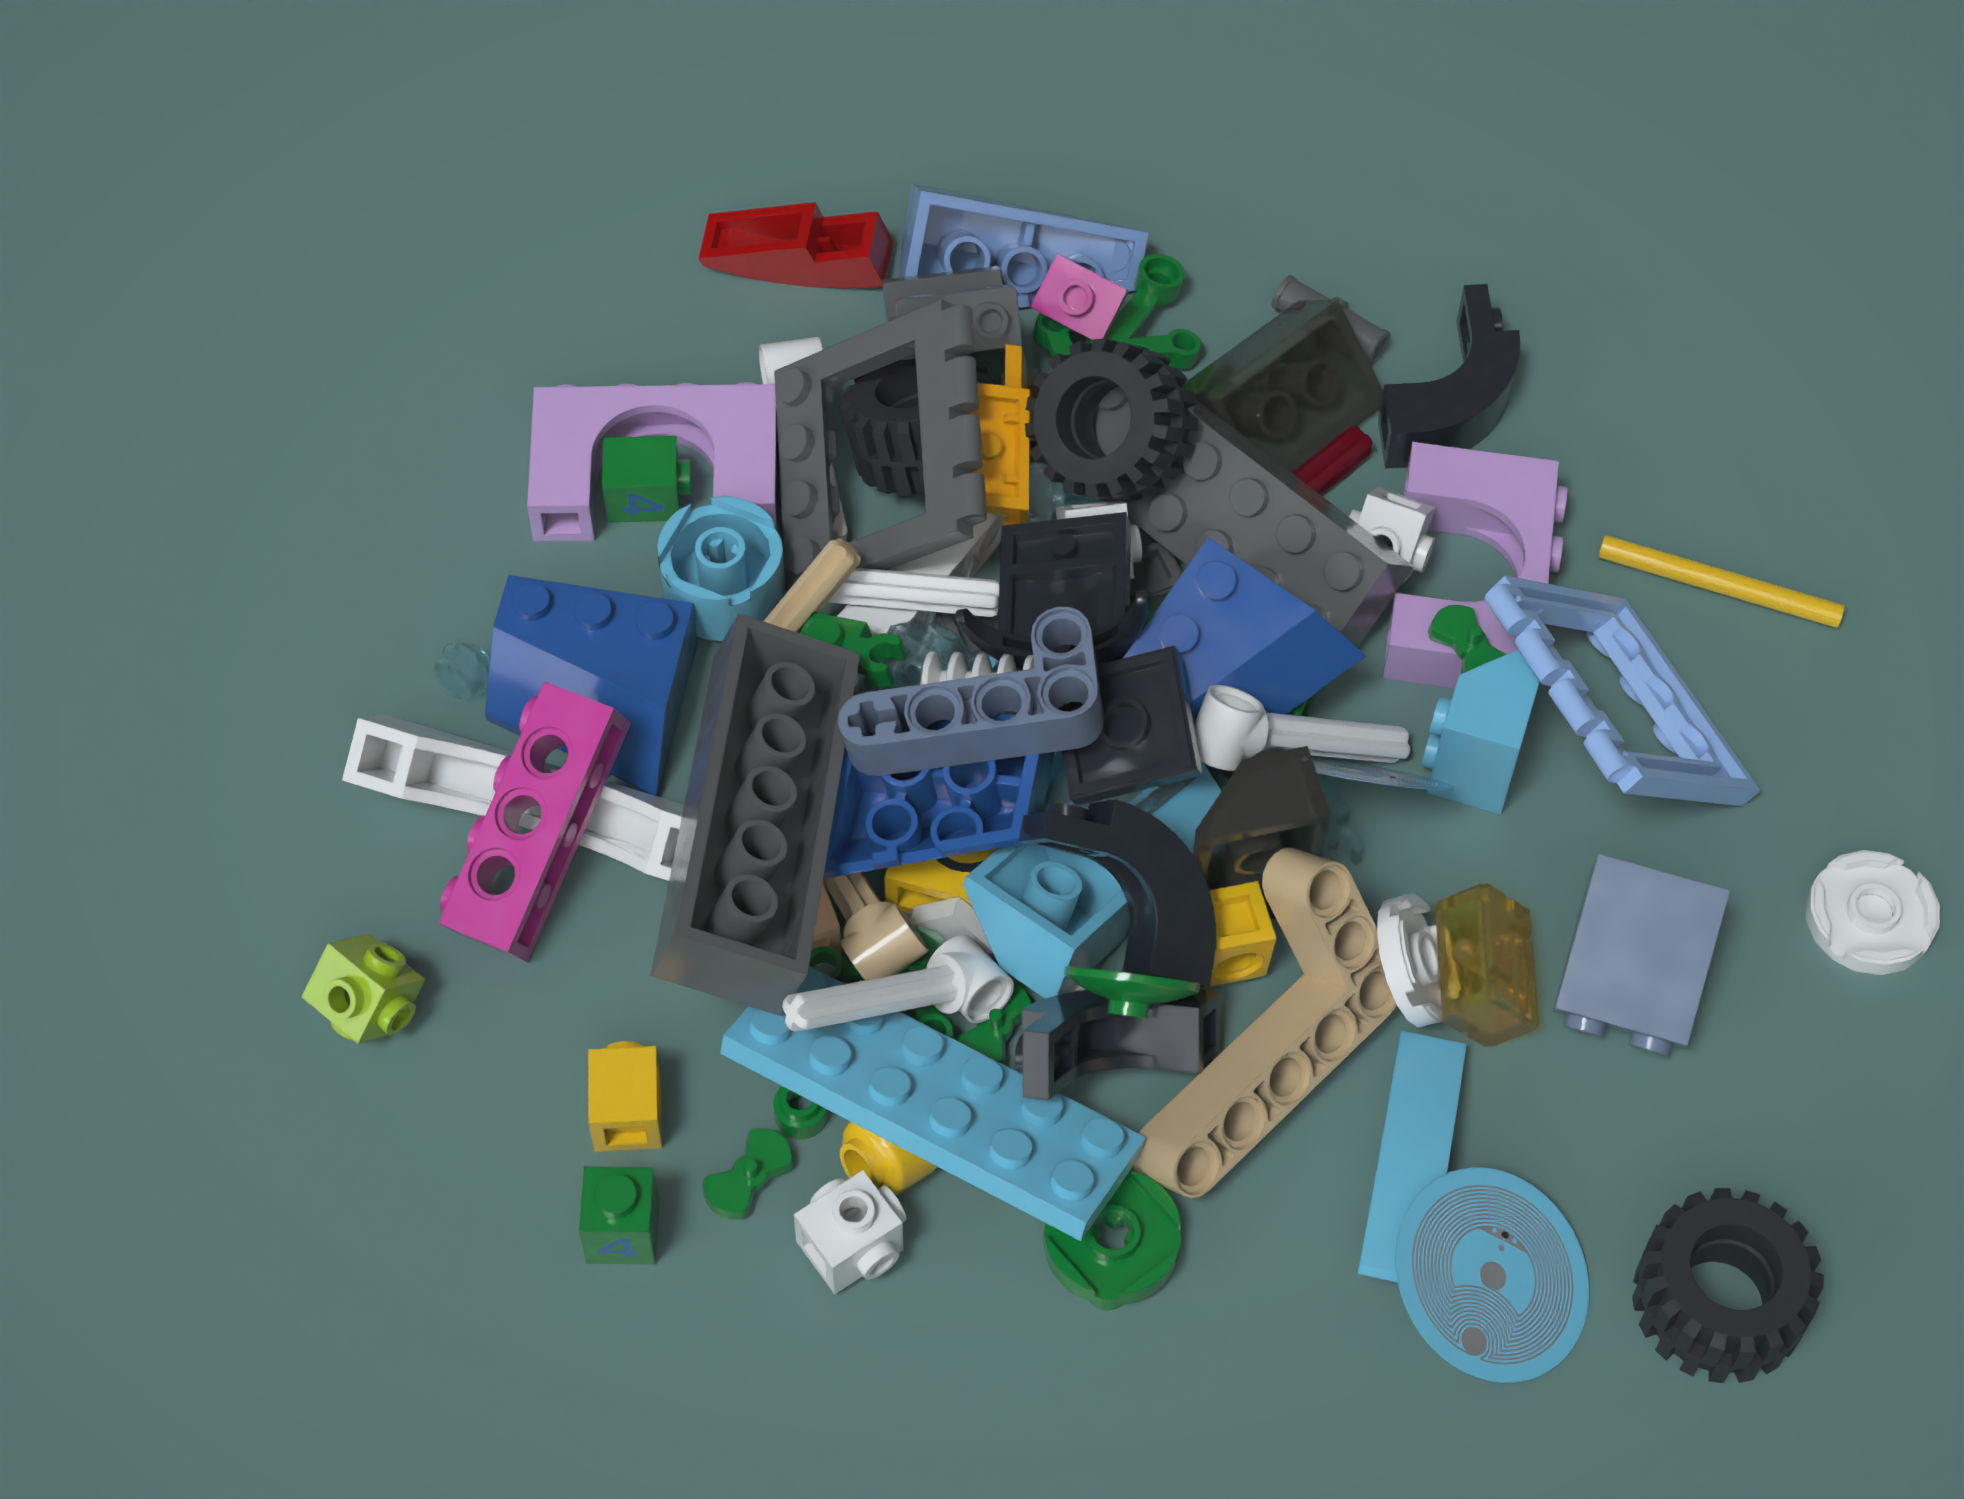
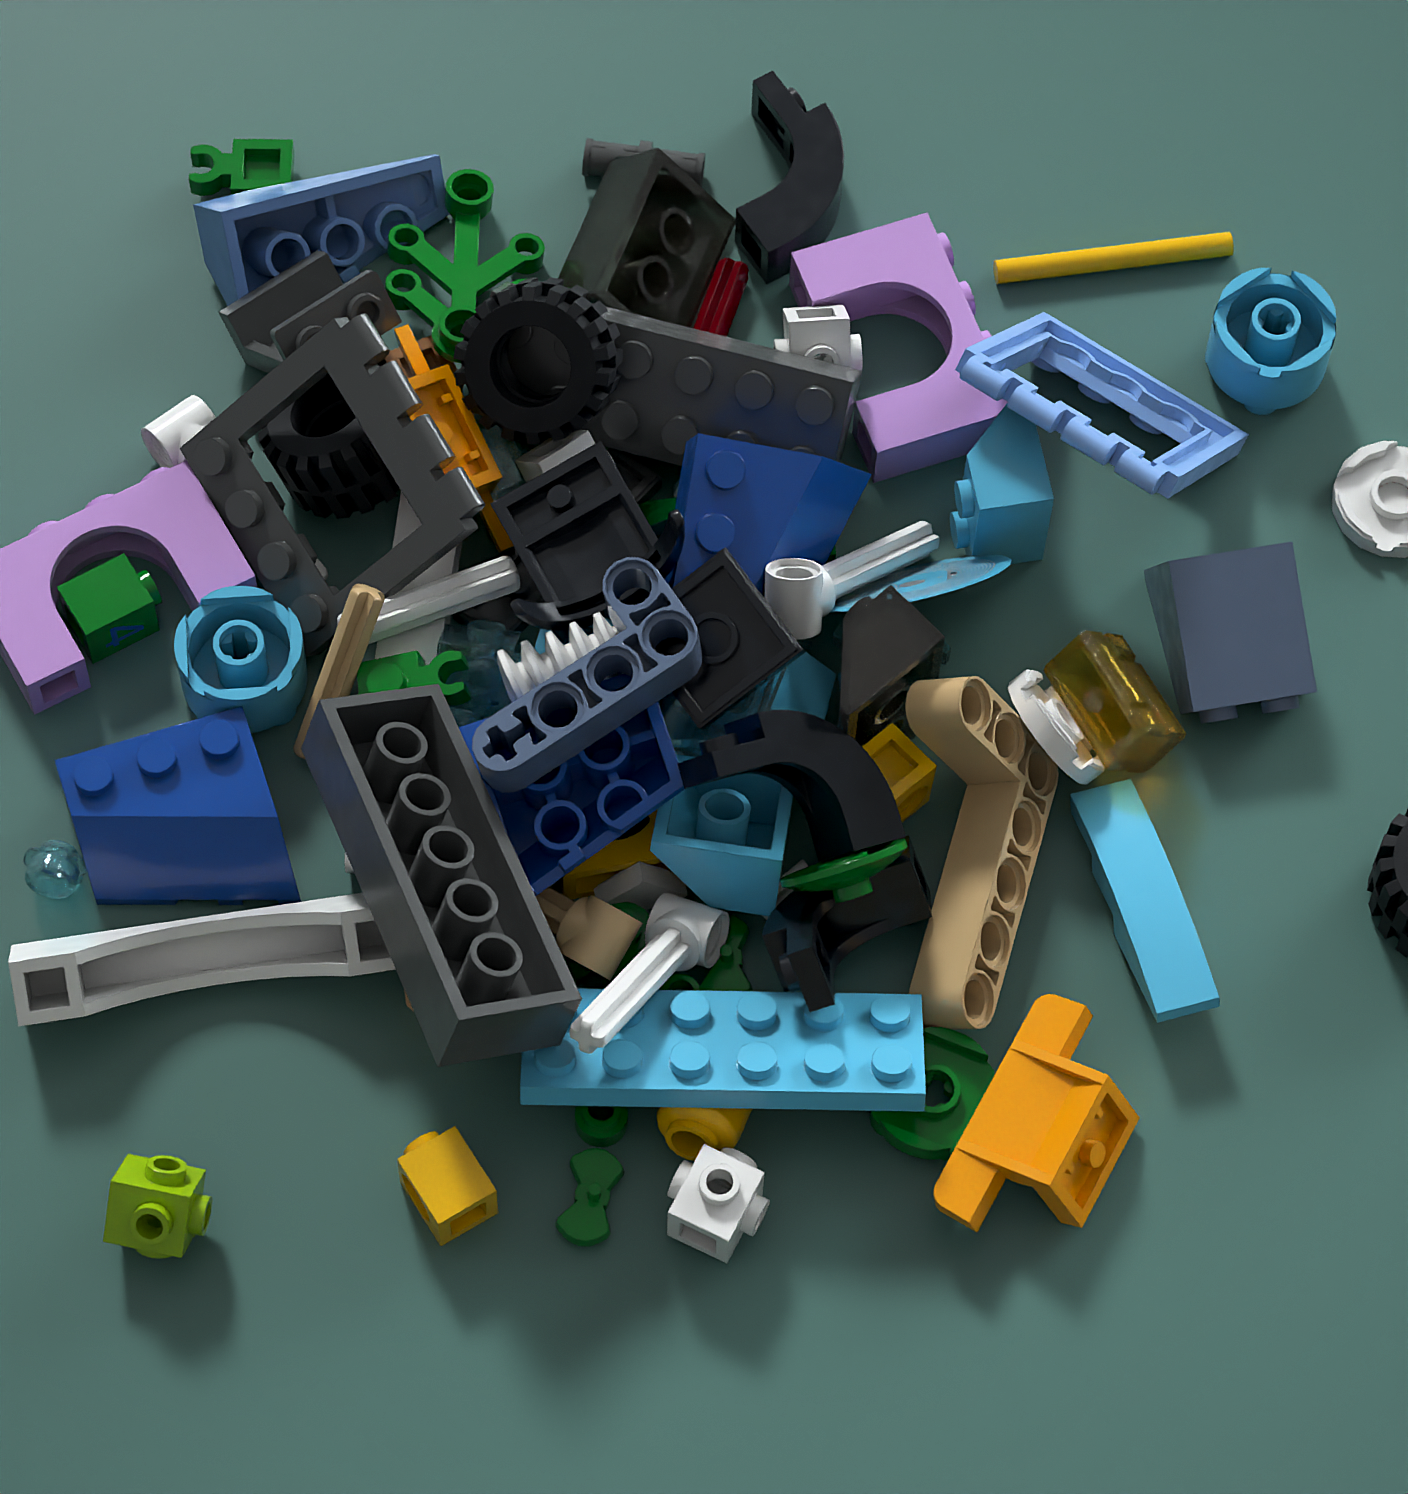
camera: 30 degrees left, 5 degrees up
(542, 856) = (249, 1078): dark pink brick -> none
(619, 1215) = (508, 1290): green brick -> none
(798, 246) = (114, 313): red slope -> none
(984, 177) = (248, 167): none -> green plate
(1079, 298) = (419, 250): dark pink bracket -> none
(1192, 1313) = (1040, 1124): none -> light orange plate
(1458, 629) = (930, 411): green piece -> none
(1492, 1275) = (1263, 967): medium azure piece -> none
(1826, 712) = (1271, 339): none -> medium azure brick

